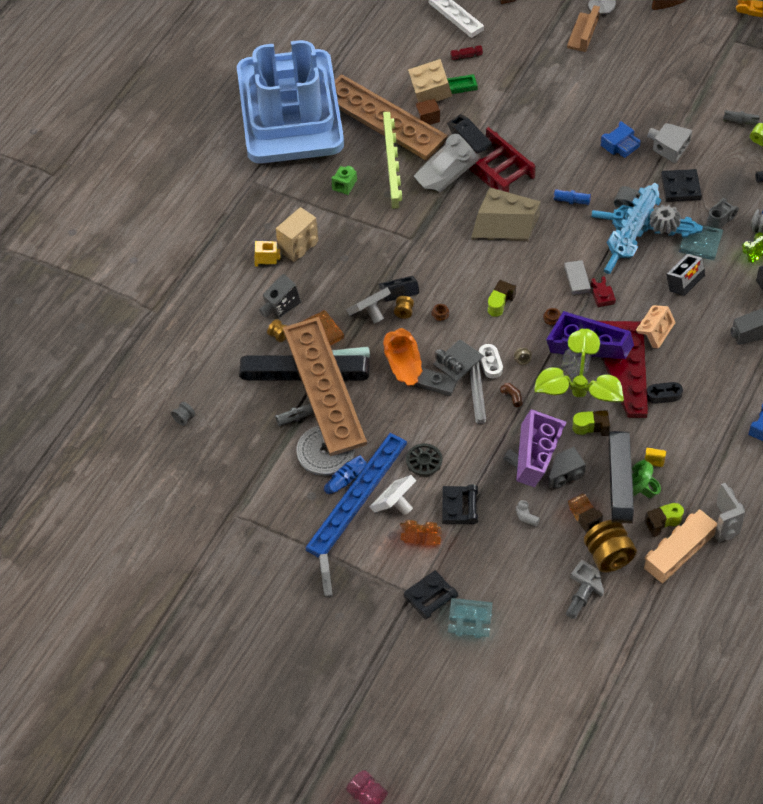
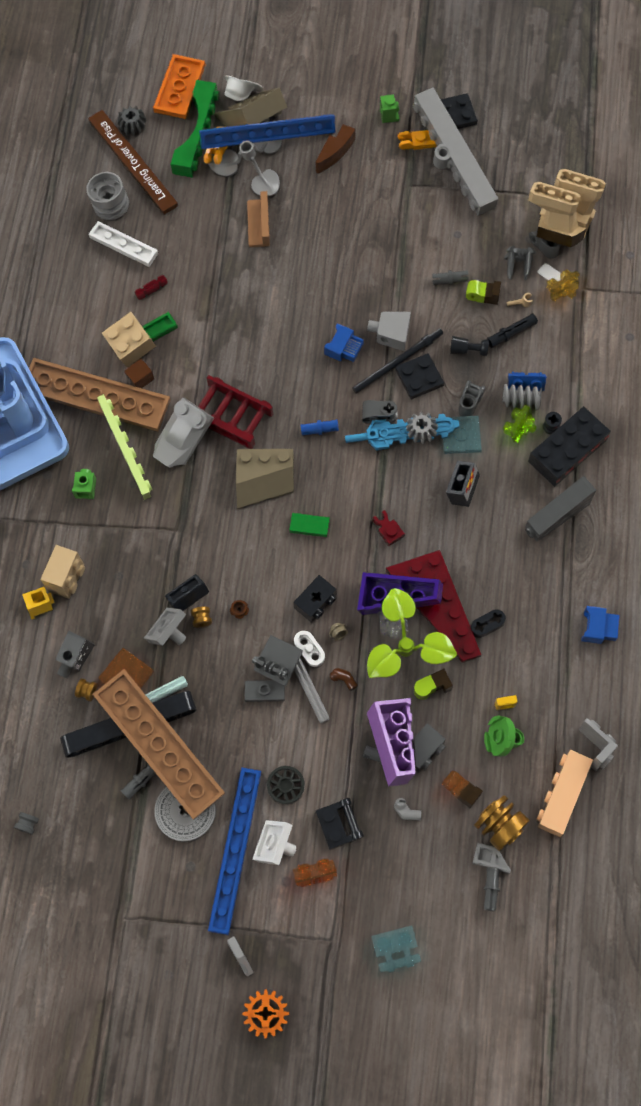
camera: 20 degrees left, 15 degrees up
(327, 623) = (265, 1023): none -> orange gear
(345, 474) = (216, 834): blue hinge -> none
(403, 356) = (224, 678): orange hair -> none
(428, 589) = (342, 933): black plate -> none
(469, 132) = (187, 388): black slope -> none
(502, 292) = (290, 573): leg -> none
(512, 324) = (317, 589): none -> black brick
(531, 268) = (309, 525): none -> green tile
(551, 316) = (350, 575): reddish brown plate -> none
(577, 277) = (357, 519): light grey tile -> none
(620, 477) = (486, 745): beam -> none
(623, 242) = (389, 465): dark azure bar -> none
(657, 325) = (454, 550): light nougat bracket -> none
(663, 517) = (541, 762): leg -> none
(697, 160) = (425, 341): none -> black bar
(730, 172) = (461, 346): none -> black piece

